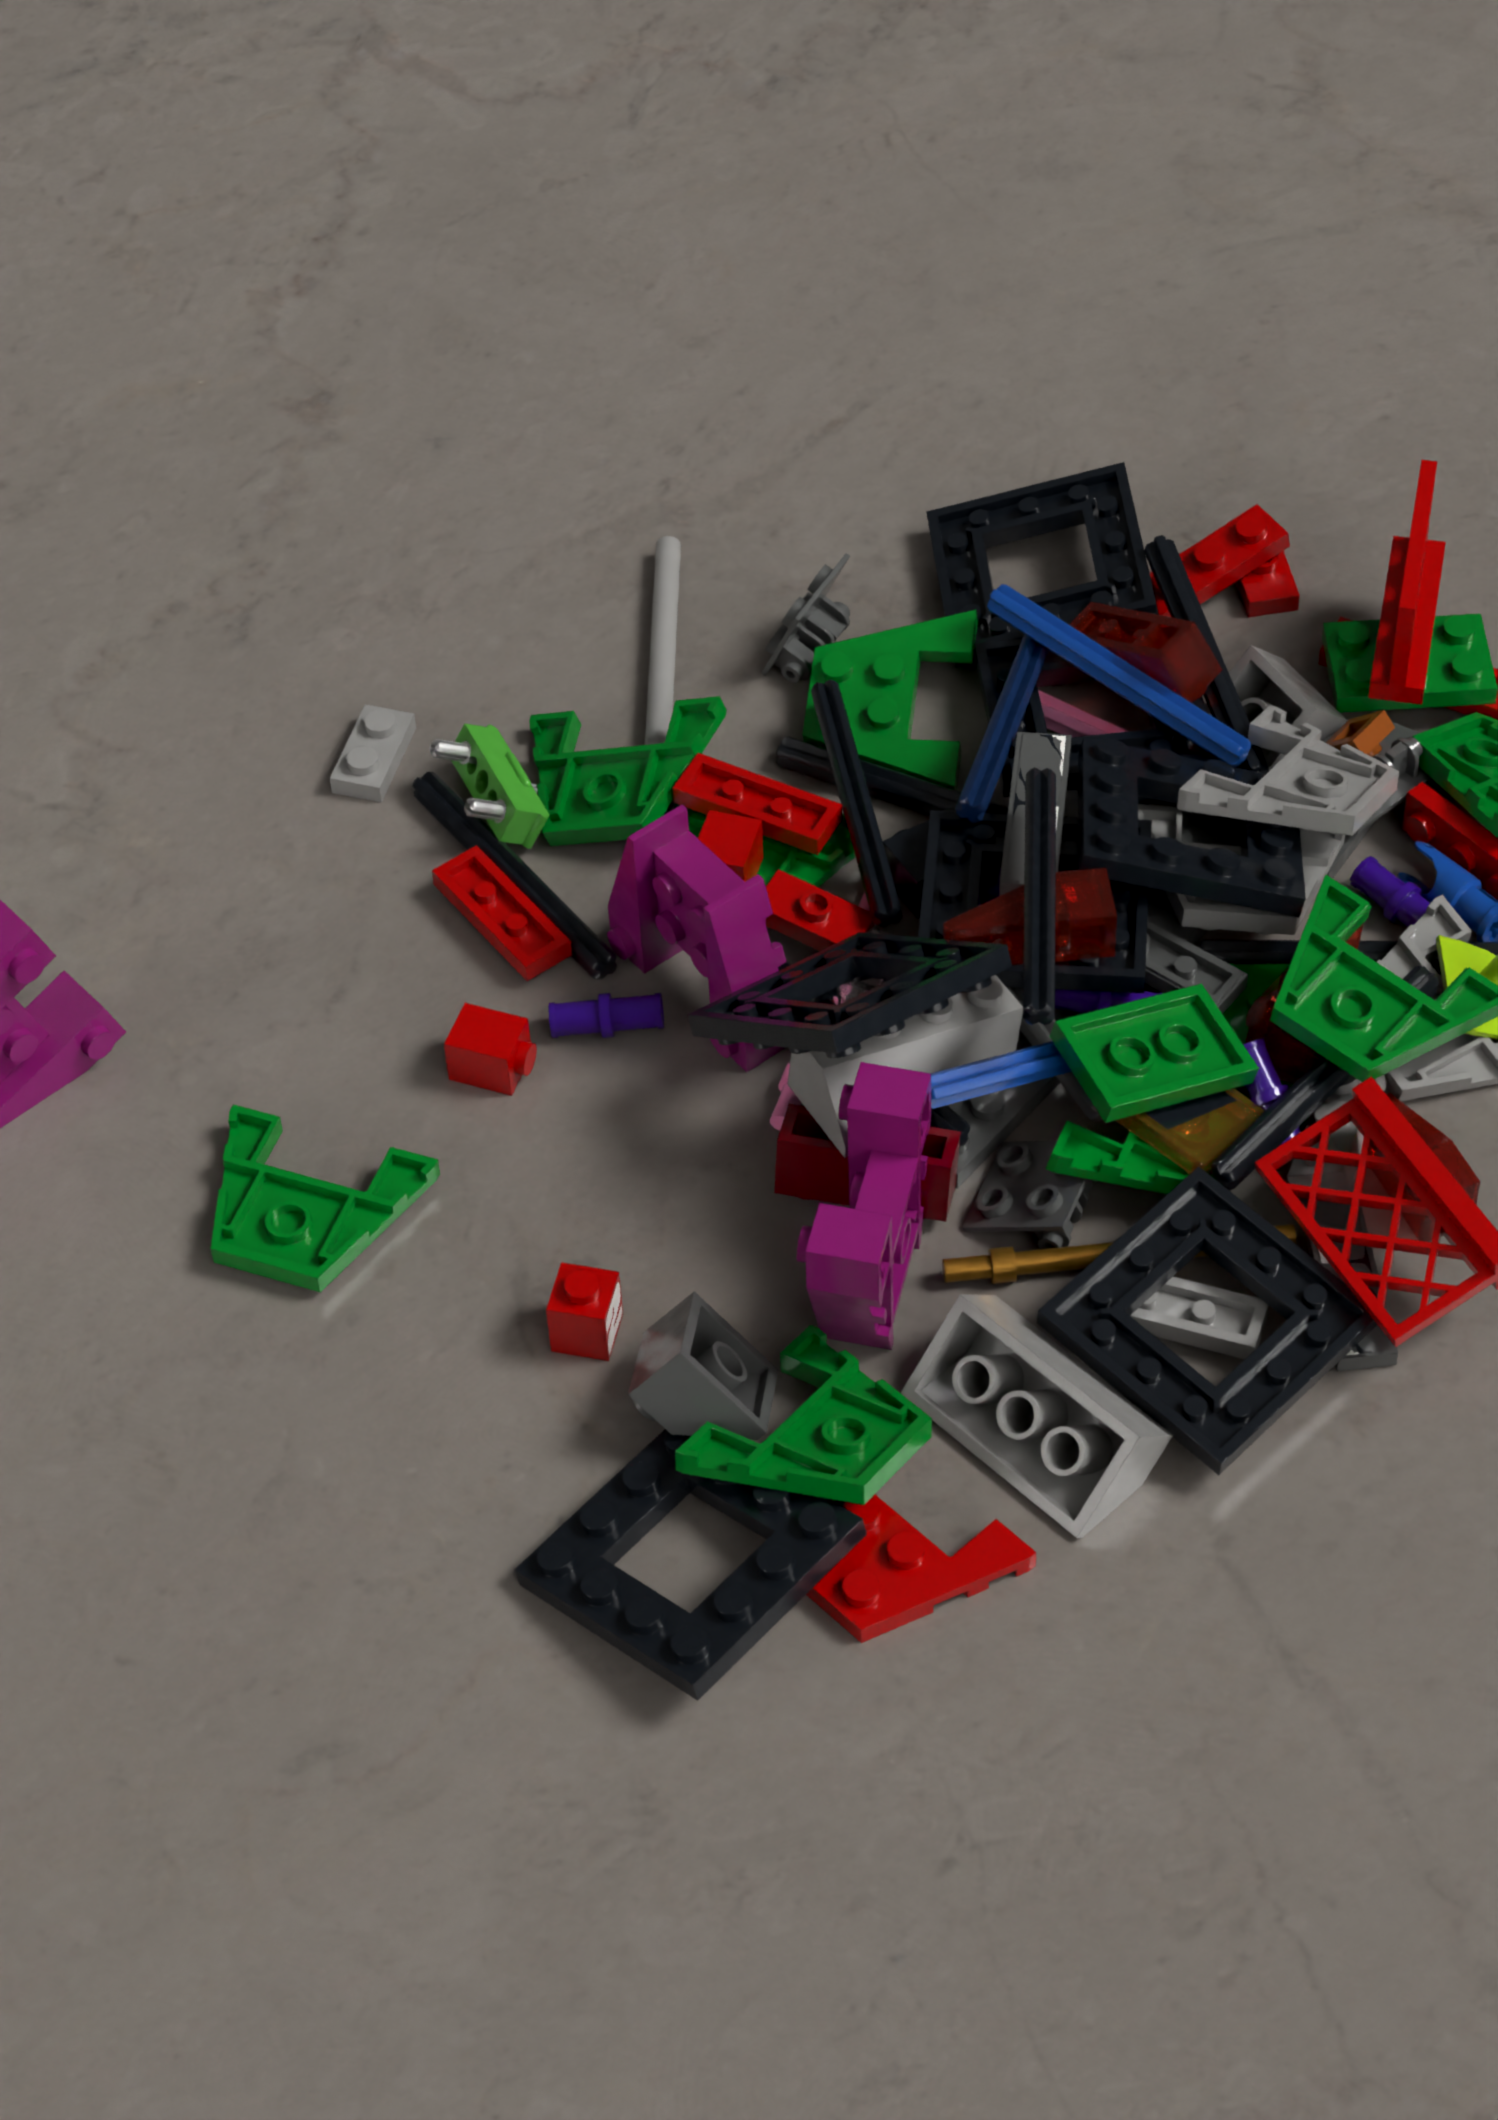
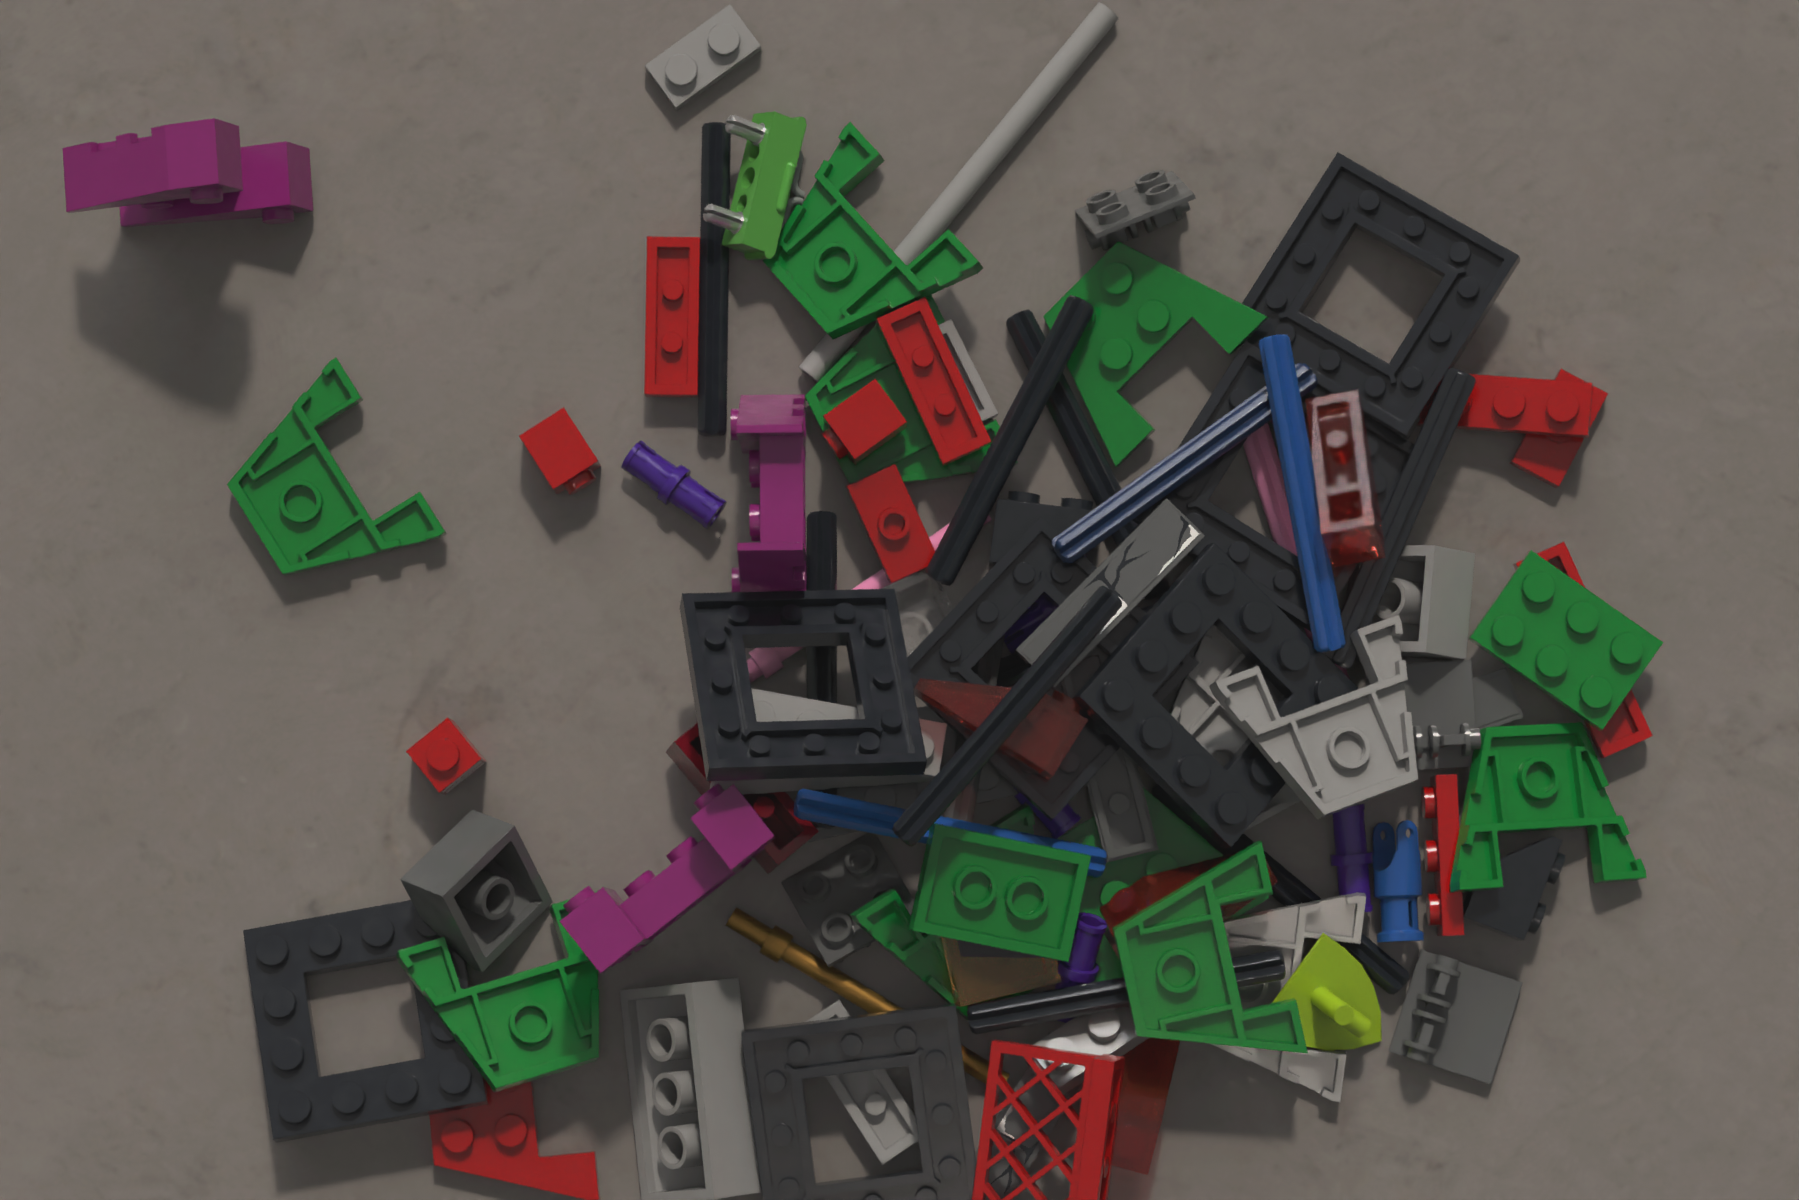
camera: 35 degrees right, 35 degrees up
(1364, 733) = (1439, 697): dark orange plate -> none
(1409, 604) = (1590, 611): red fence -> none

